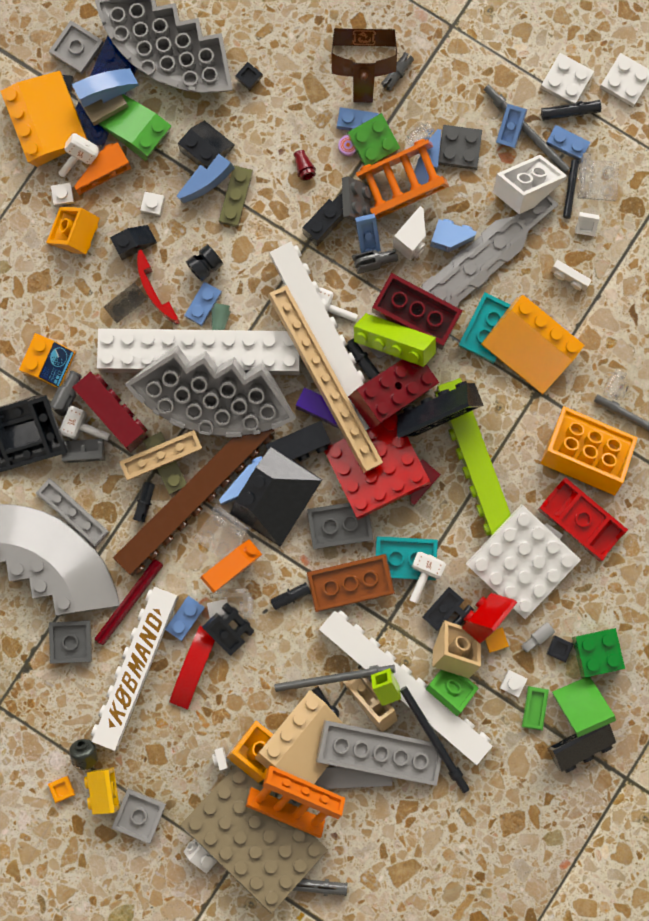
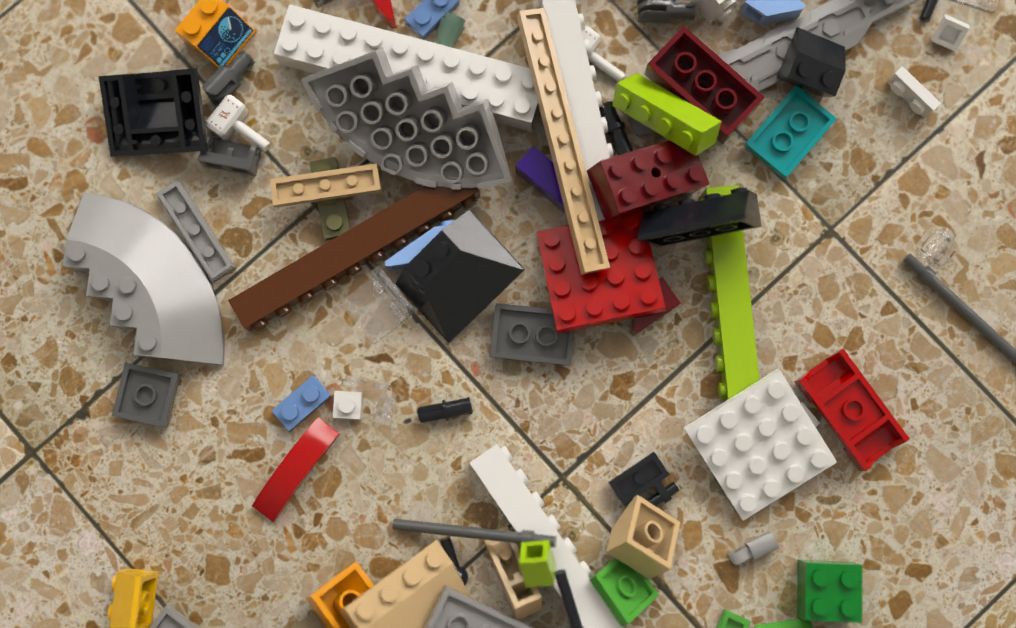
camera: 15 degrees right, 0 degrees up
(61, 789) = (83, 582): light orange tile -> none
(83, 754) = (121, 545): pearl dark grey head -> none
(107, 407) = (277, 112): dark red brick -> none
(128, 602) = (235, 363): dark red axle -> none
(134, 669) = (218, 451): white brick -> none
(144, 502) = (289, 240): black axle -> none
(220, 759) = (296, 598): white plate -> none
(223, 633) = (344, 435): black plate -> none
(231, 566) = (376, 351): orange slope -> none
(303, 442) = (513, 216): black brick -> none
(351, 583) = (527, 413): dark orange tile -> none
(402, 553) = (607, 400): teal plate -> none
(428, 566) = (633, 418): white piece -> none
(487, 616) = (696, 504): red slope -> none
(493, 273) = (813, 64): none -> black slope
(496, 640) = (697, 537): light orange tile -> none
(513, 683) = (705, 600): white plate -> none
(532, 344) = (843, 166): light orange slope -> none
(559, 649) = (778, 571): black tile -> none
(589, 451) = (882, 324): light orange slope -> none

